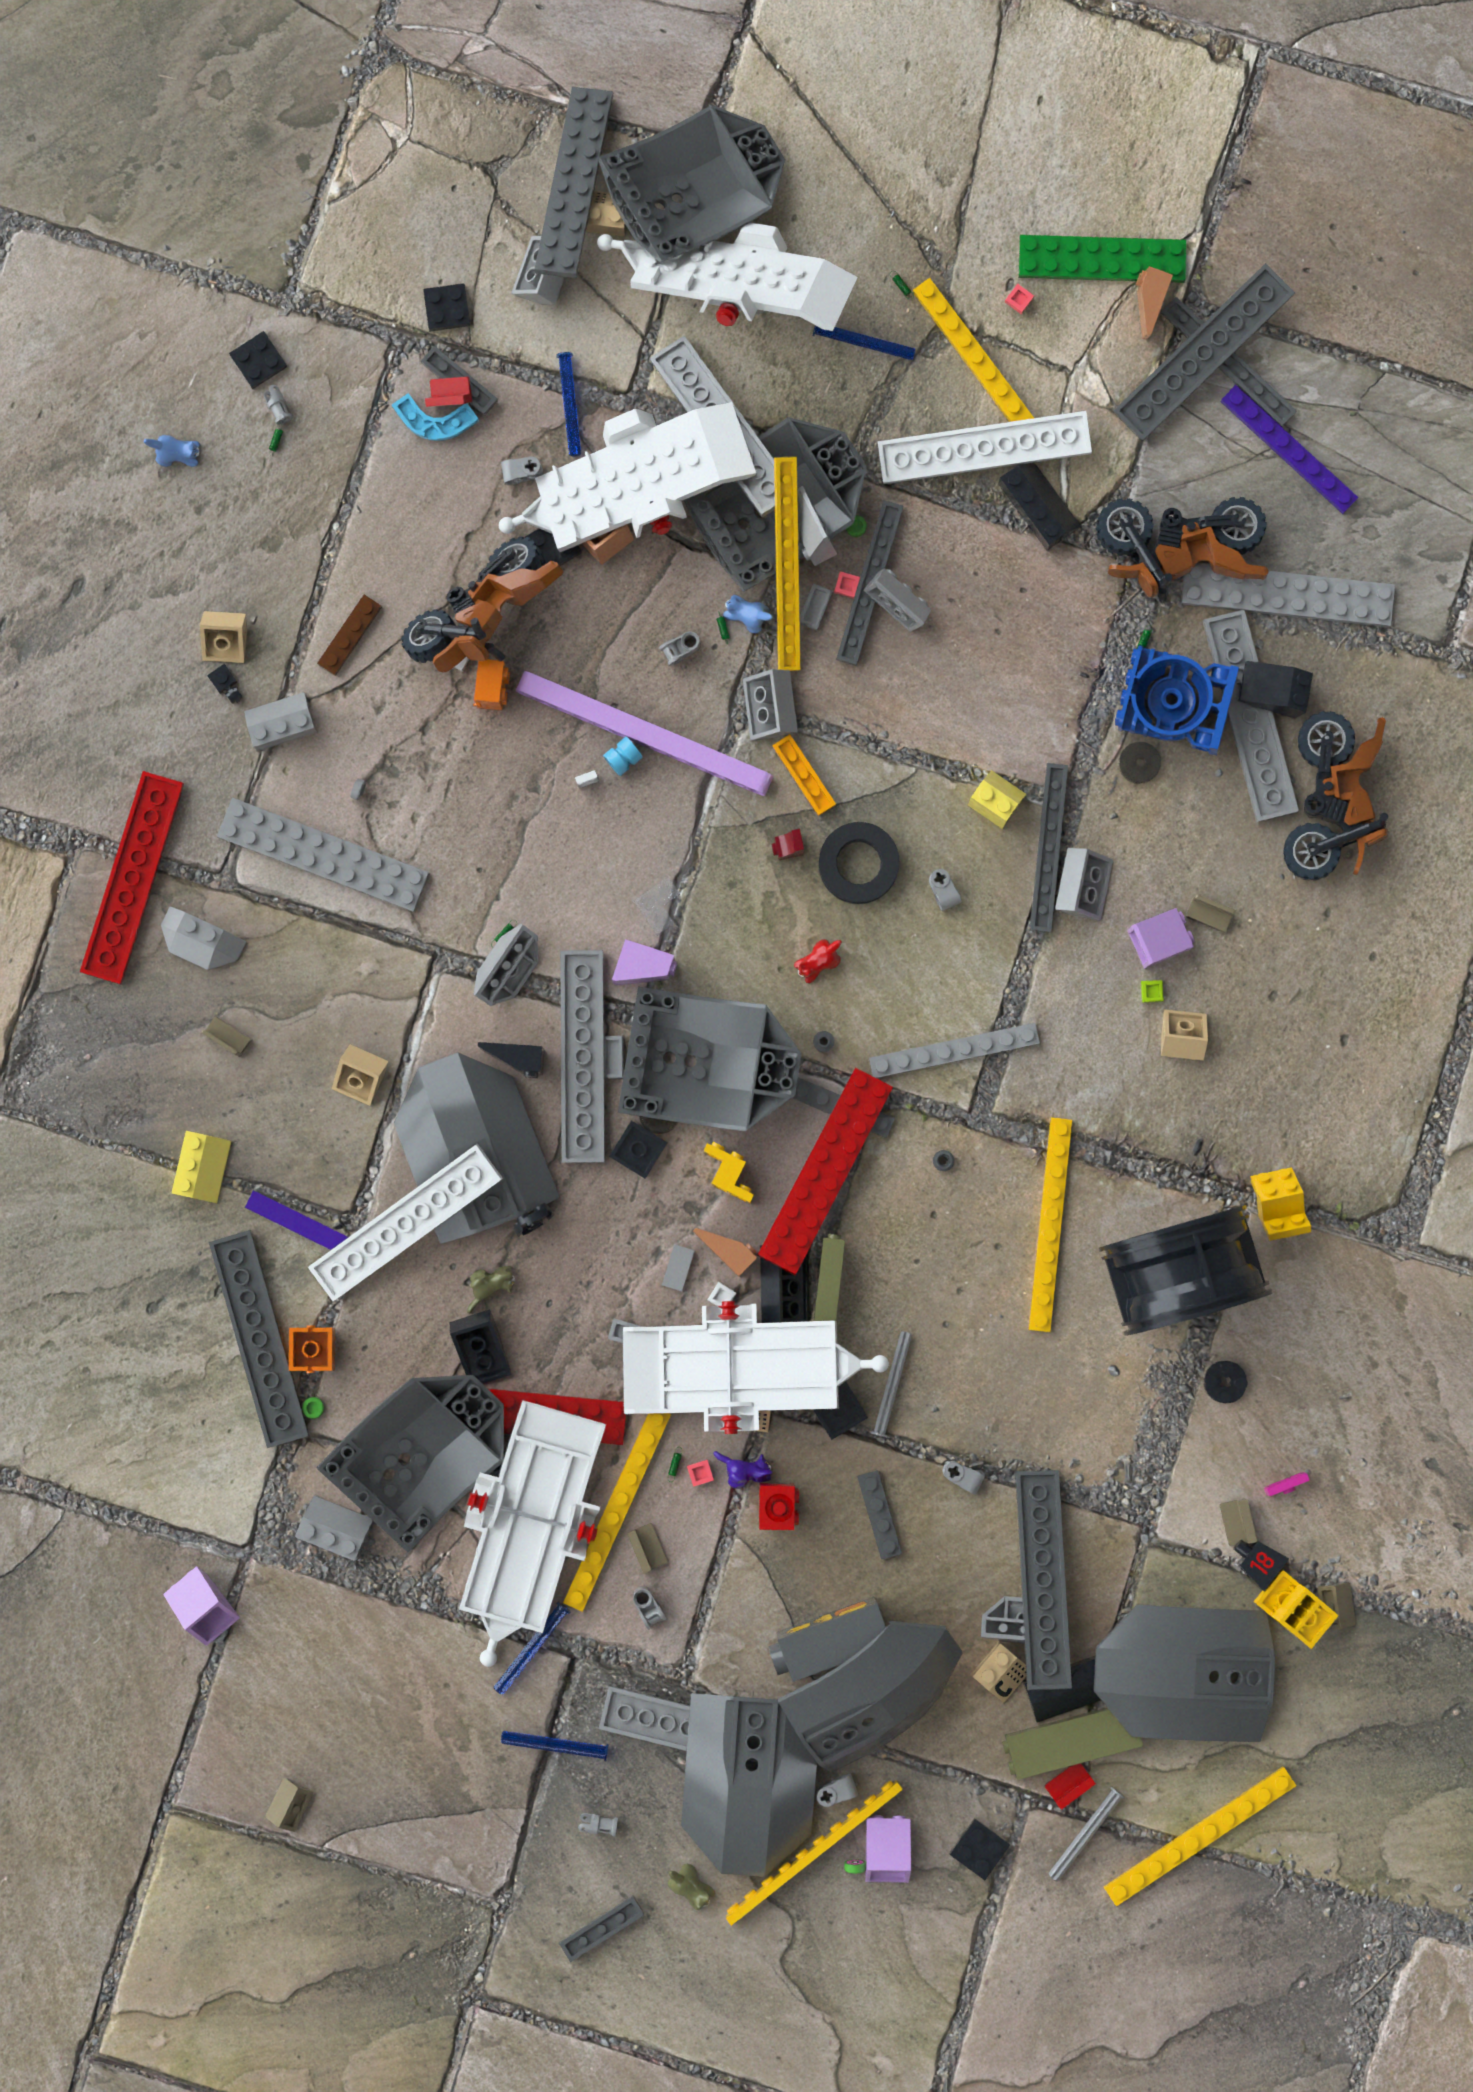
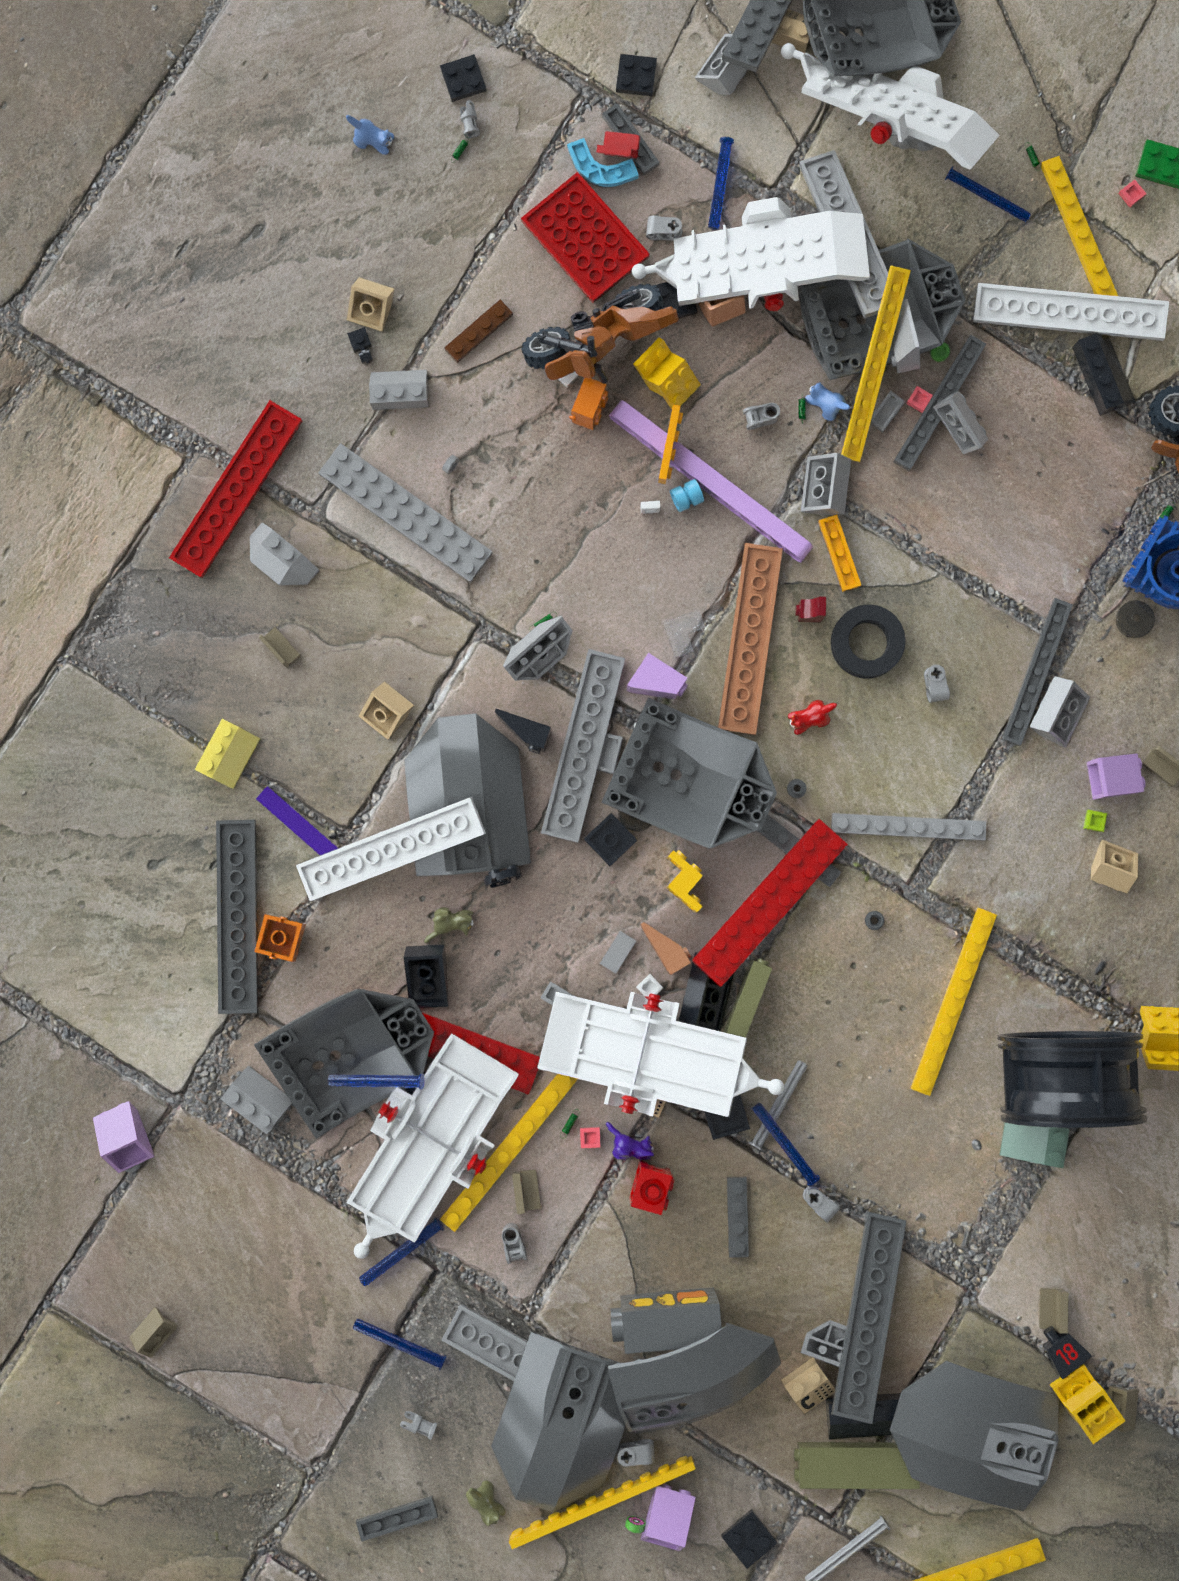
camera: 15 degrees right, 0 degrees up
(313, 1407) = (268, 989): bright green tile -> none
(438, 502) = (585, 237): none -> red plate
(456, 1472) = (377, 1081): none -> clear blue axle
(566, 630) = (666, 373): none -> yellow bracket
(591, 716) = (672, 436): none -> light orange plate
(731, 893) = (750, 639): none -> nougat plate
(909, 1423) = (786, 1144): none -> clear blue axle
(996, 799) = (1002, 619): light yellow slope -> none
(1069, 1785) = (843, 1505): red panel -> none
(1172, 1350) = (1035, 1144): none -> sand green slope
(1212, 1381) = (1083, 1186): black plate -> none
(1286, 1485) = (1105, 1288): dark pink plate -> none

